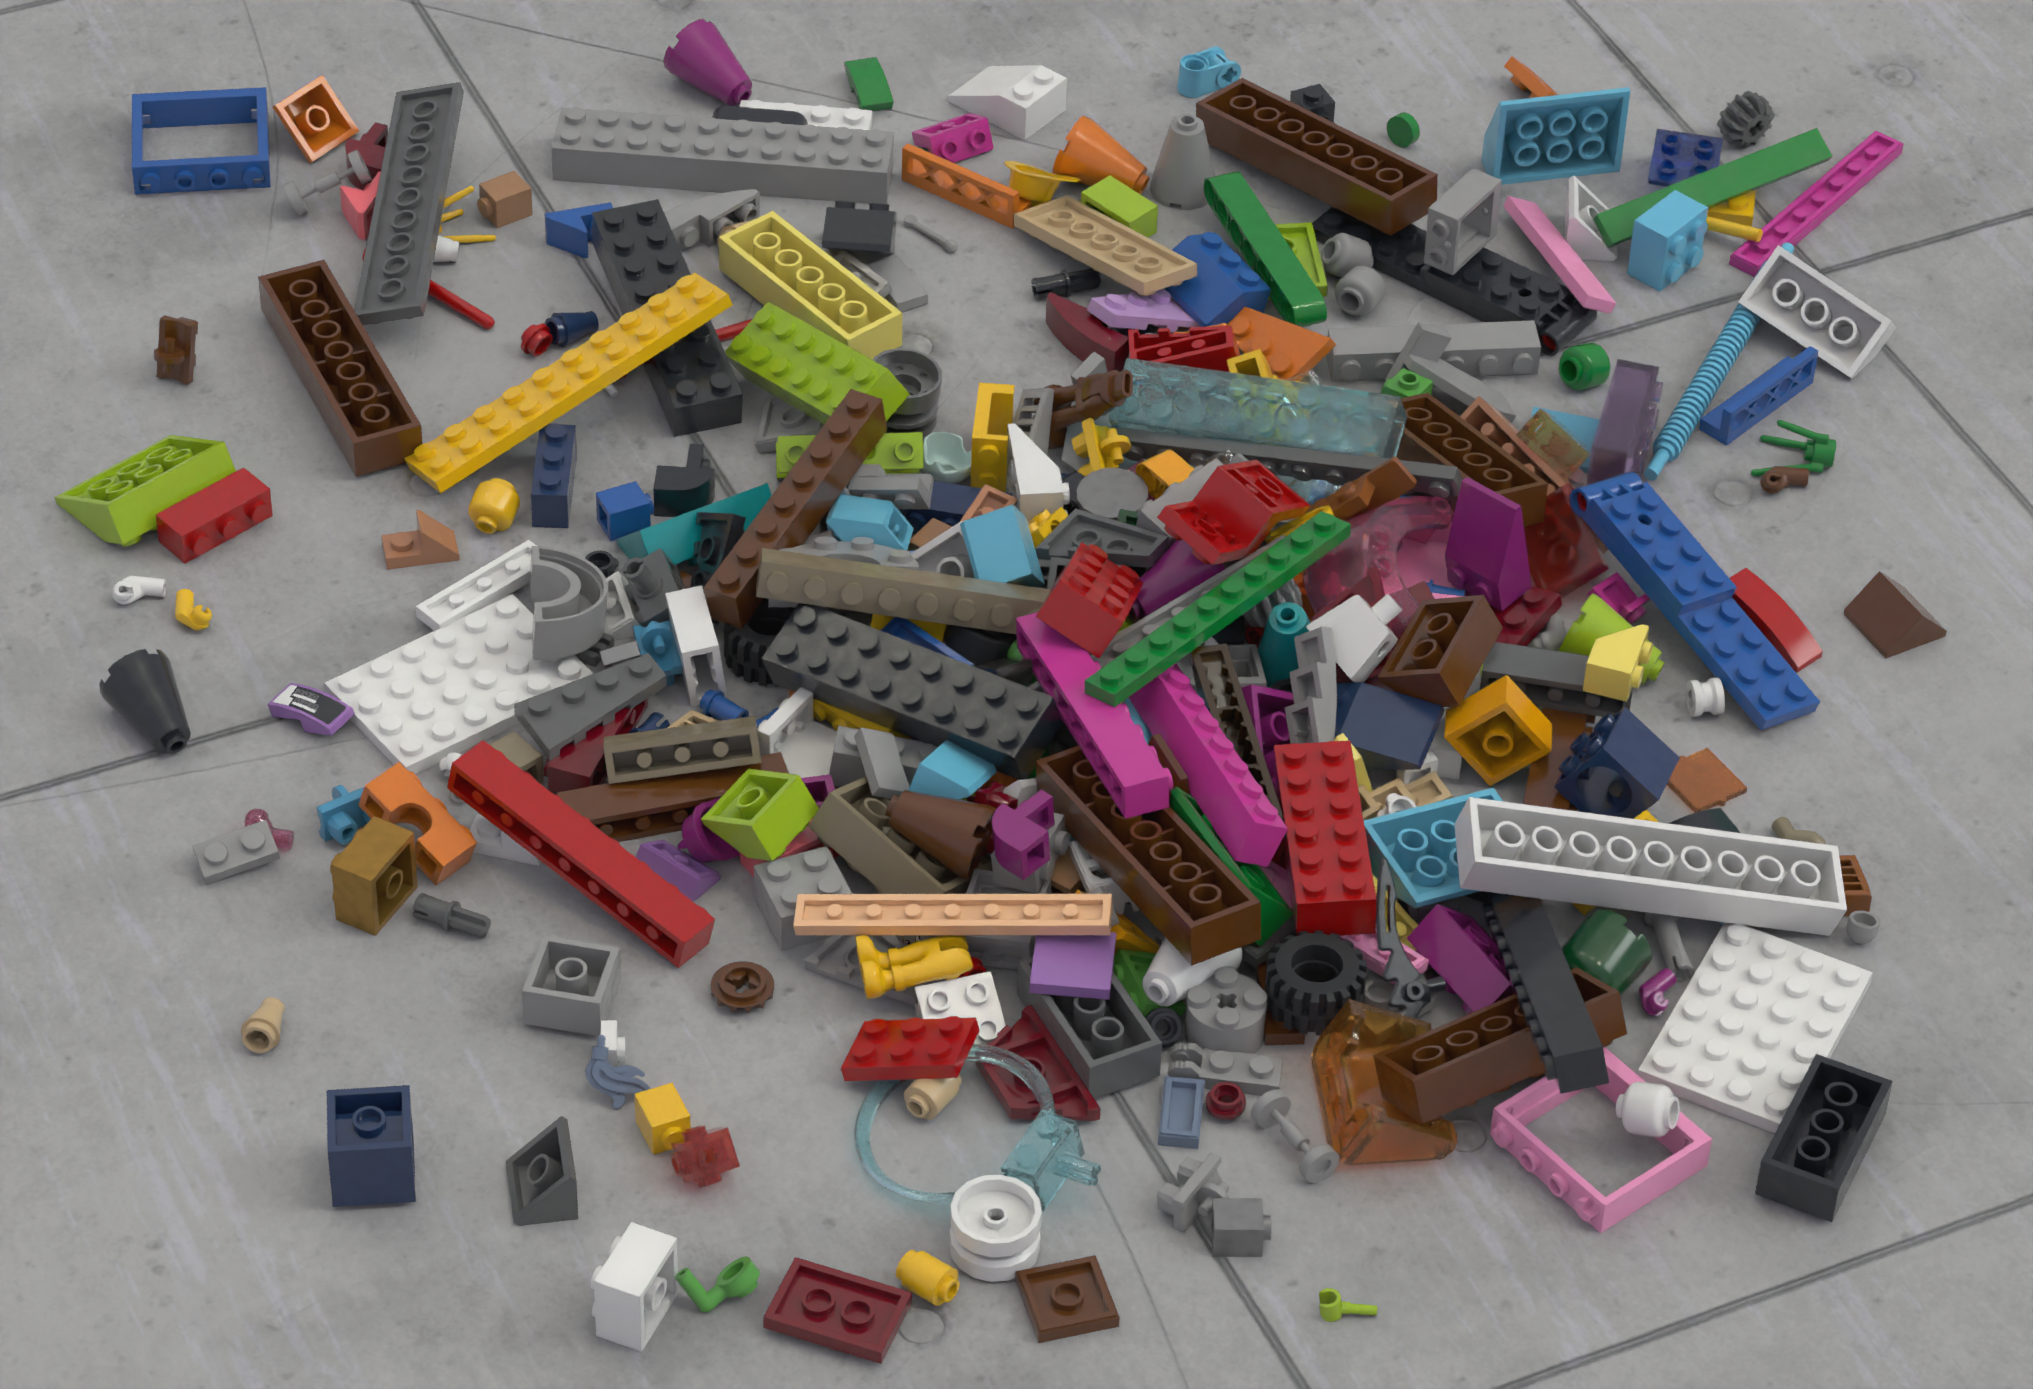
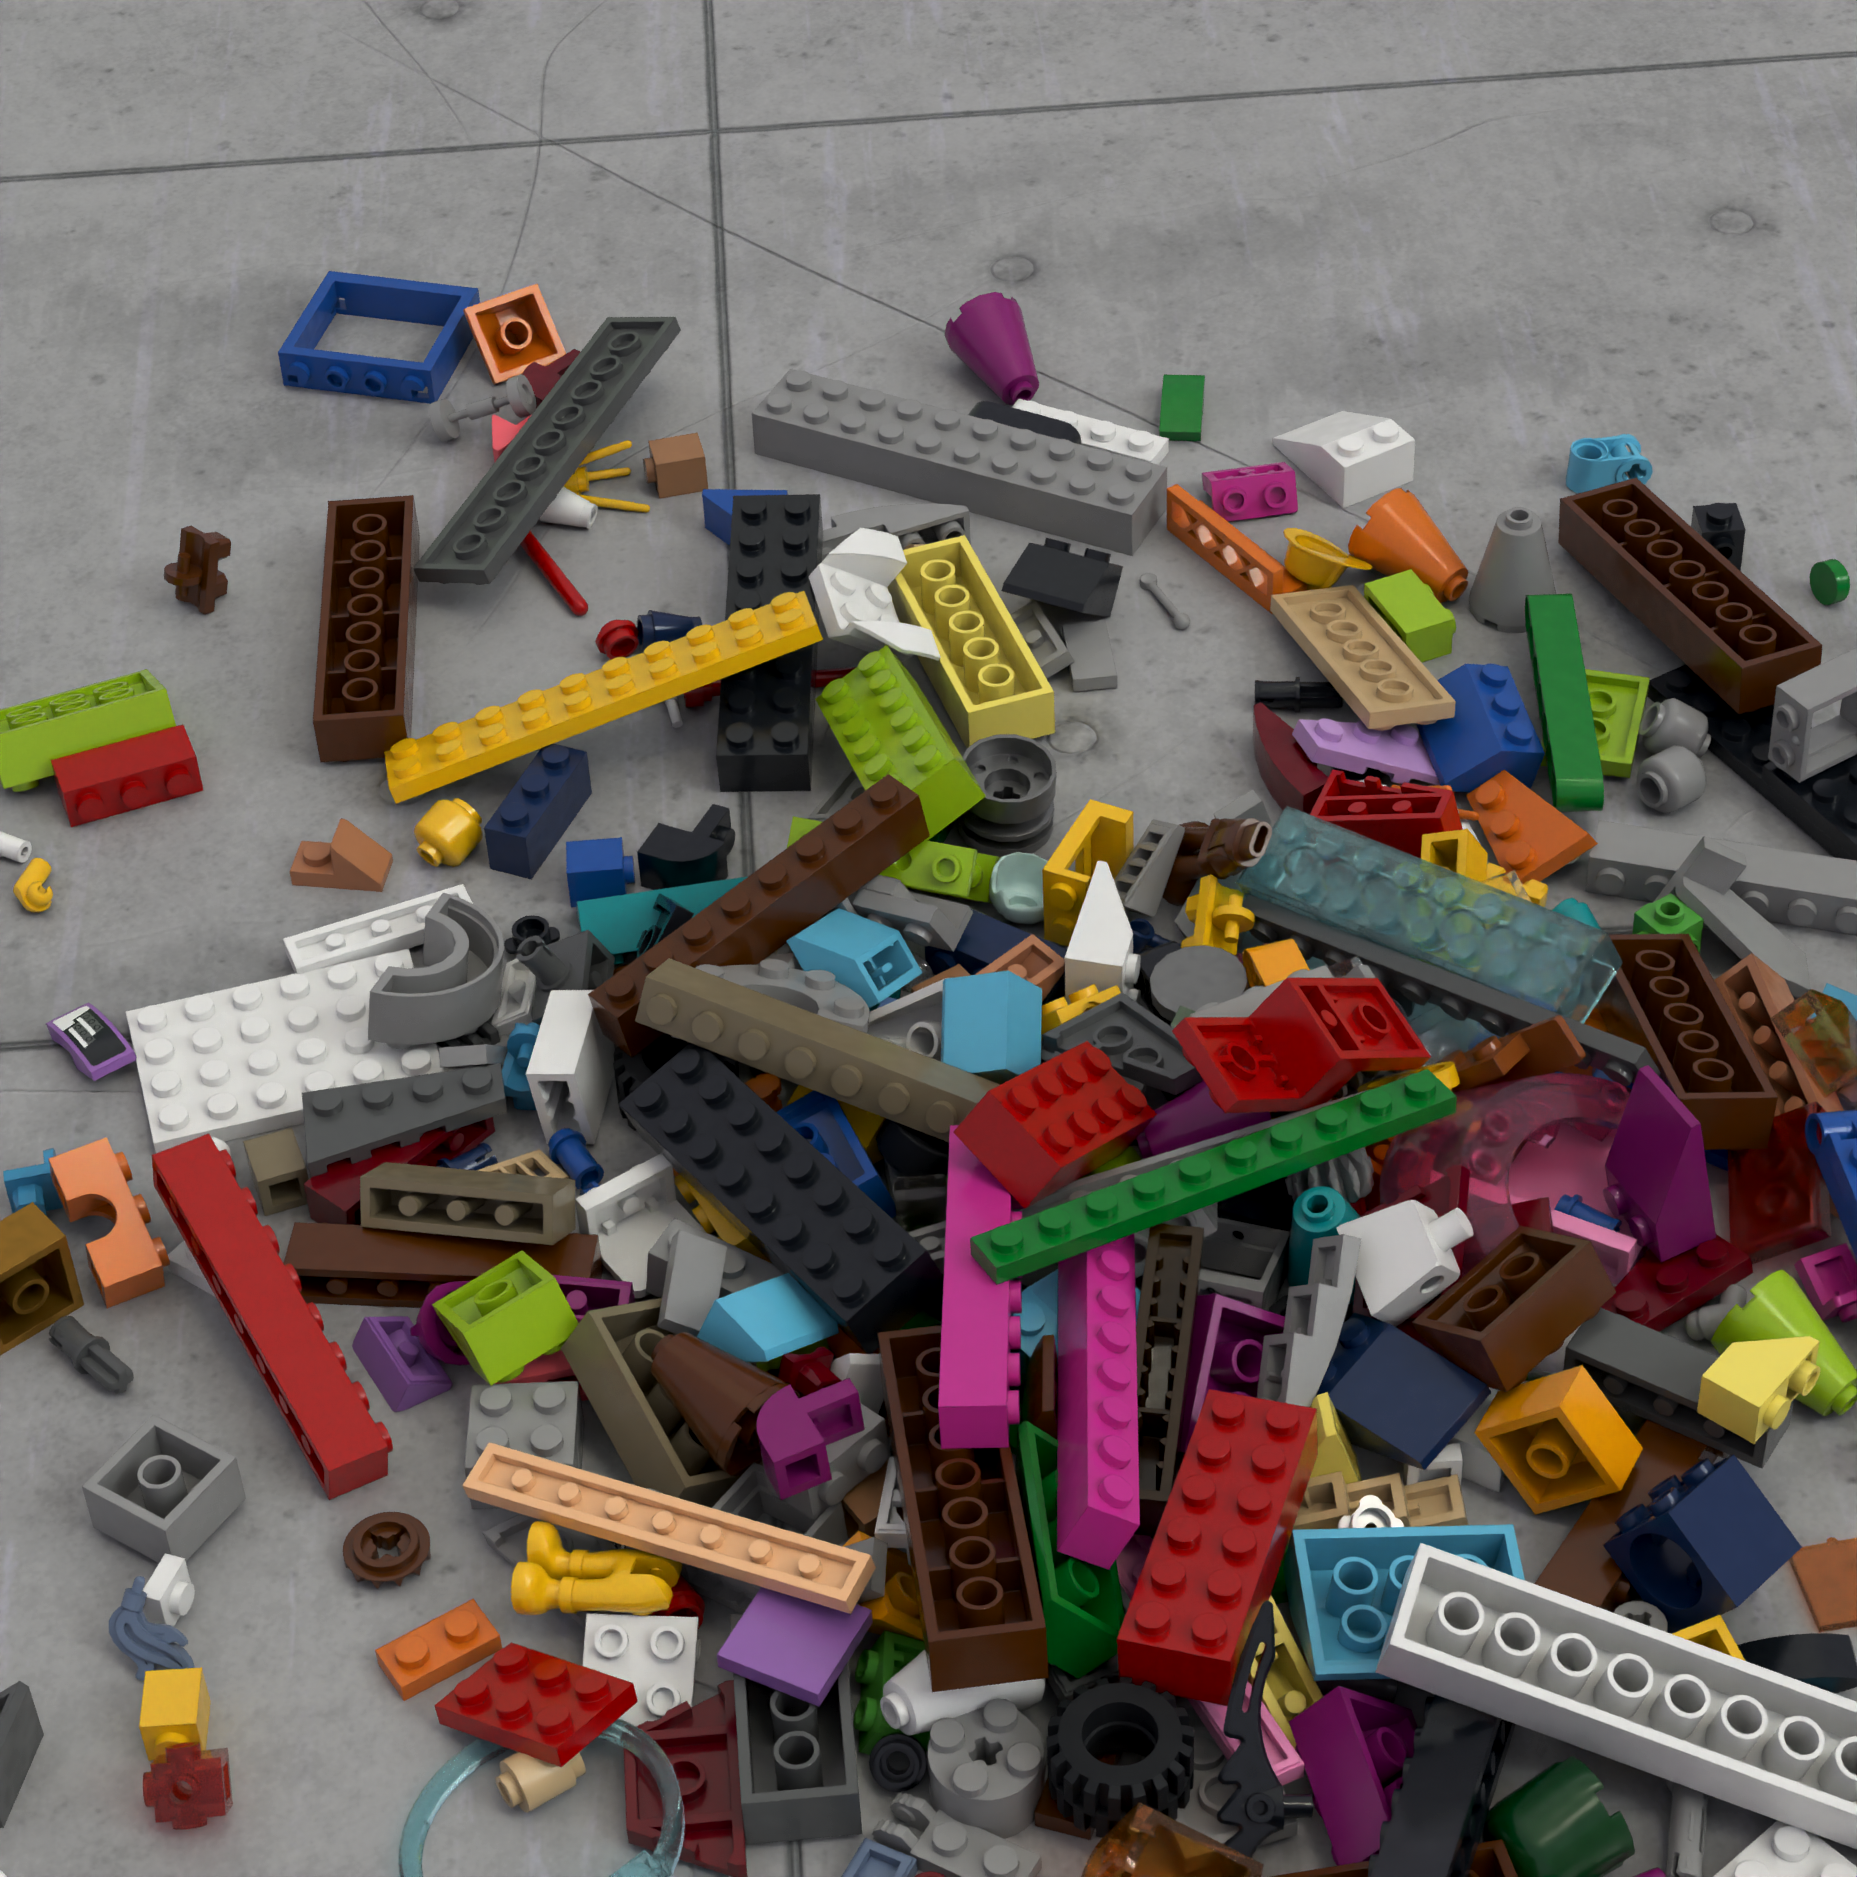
camera: 25 degrees right, 0 degrees up
(713, 260) = (856, 600): none -> white piece
(814, 1038) = (438, 1649): none -> orange plate

